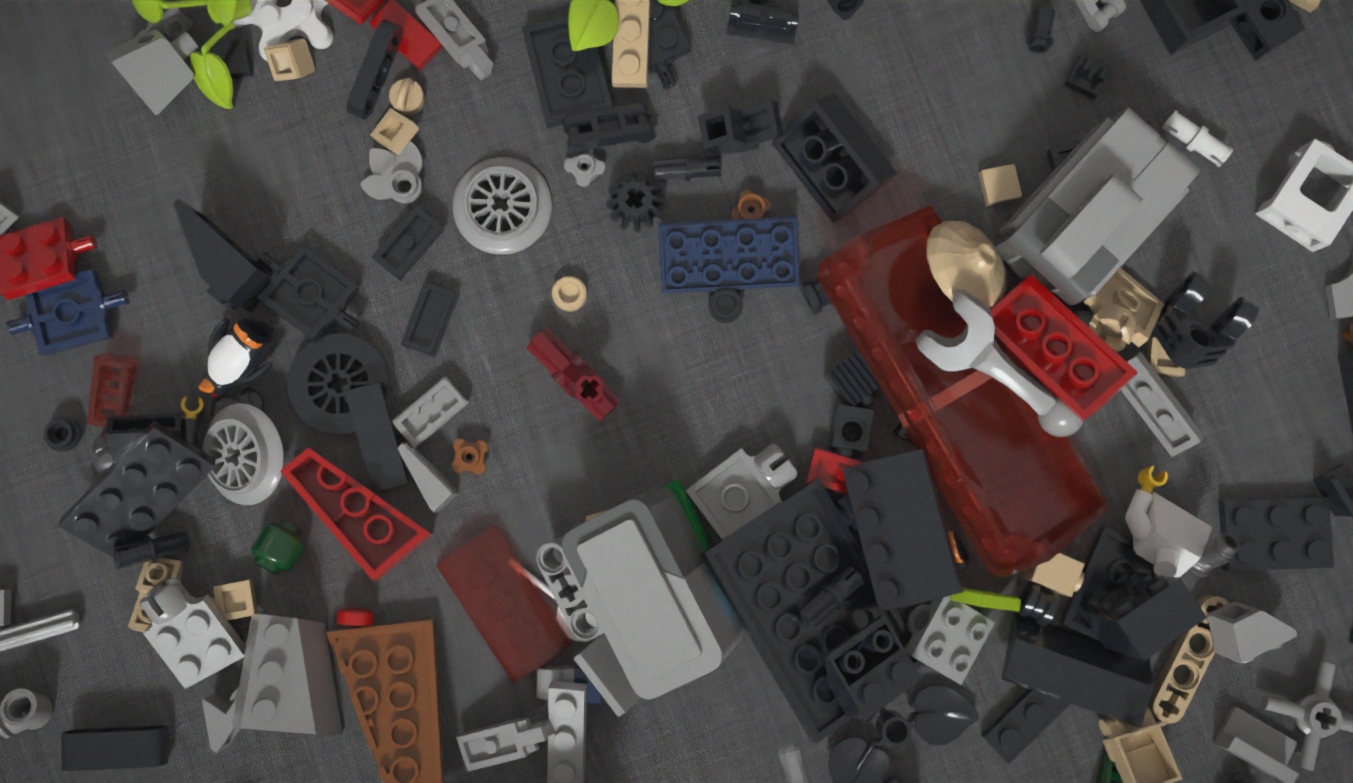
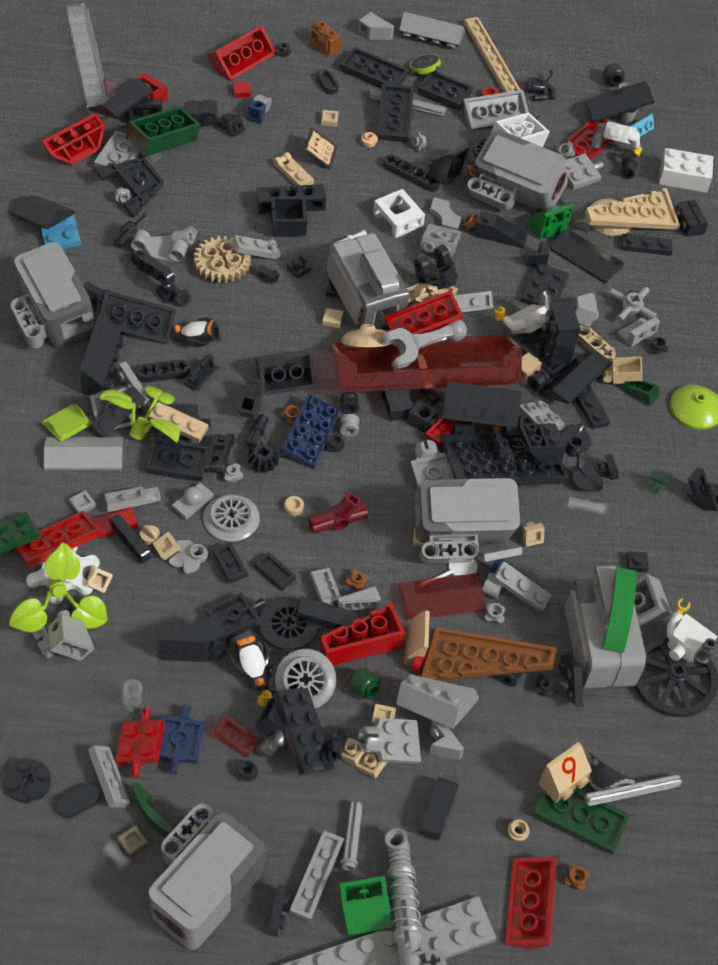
camera: 70 degrees left, 30 degrees down
(90, 209) = (132, 694): none -> clear hinge
(383, 600) = (416, 637): none -> tan slope
(502, 131) = (192, 500): none -> light grey tile
(502, 742) = (514, 616): light grey hinge -> none
(505, 713) = (495, 608): none -> light grey plate
(691, 711) = (533, 534): none -> tan tile
(771, 314) = (349, 425): none -> light grey wheel
(987, 599) = (528, 393): lime tile -> none
(1287, 297) = (438, 235): none -> light grey plate

